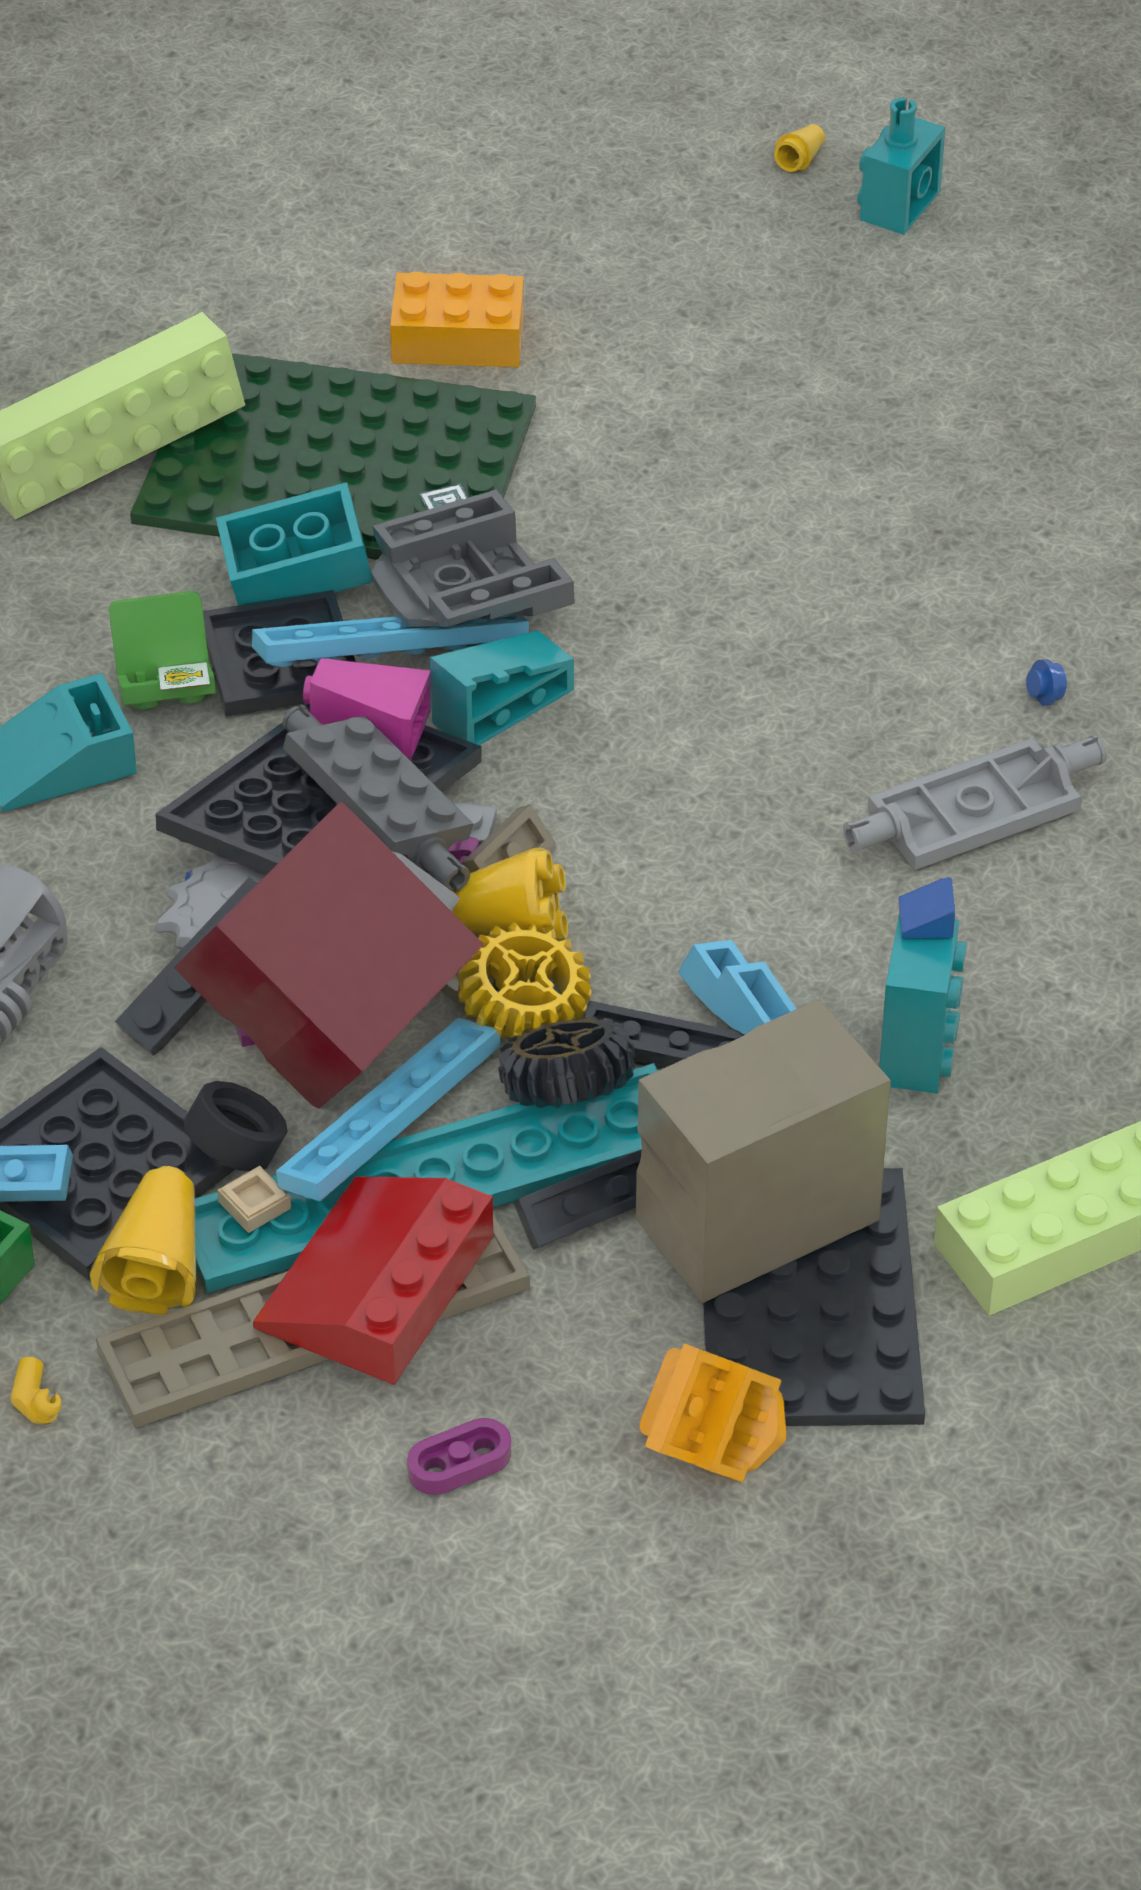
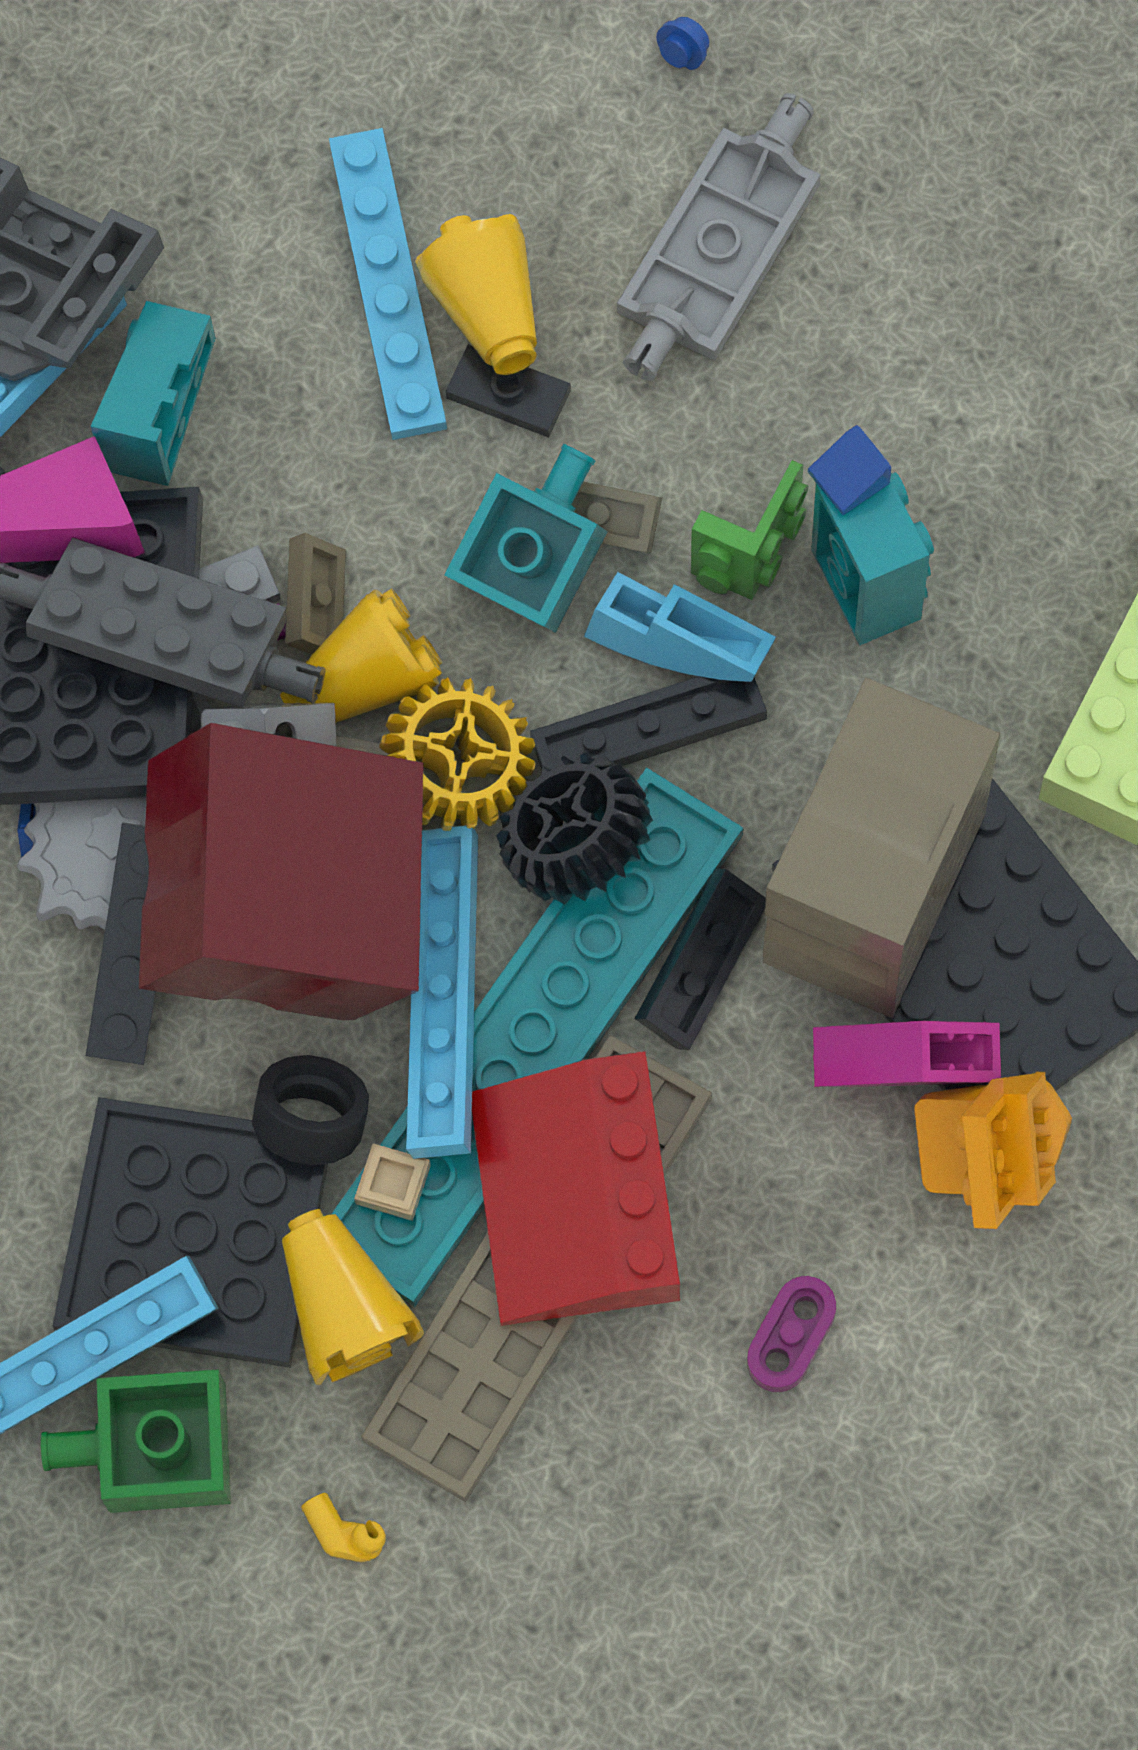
camera: 30 degrees left, 25 degrees up
(680, 889) = (531, 544): none -> teal brick
(690, 1308) = (906, 1054): none -> dark pink slope
(717, 716) = (387, 284): none -> medium azure plate
(750, 813) = (521, 398): none -> black plate
(752, 908) = (625, 514): none -> dark tan plate
(780, 730) = (484, 287): none -> yellow cone
(839, 970) = (741, 560): none -> bright green bracket

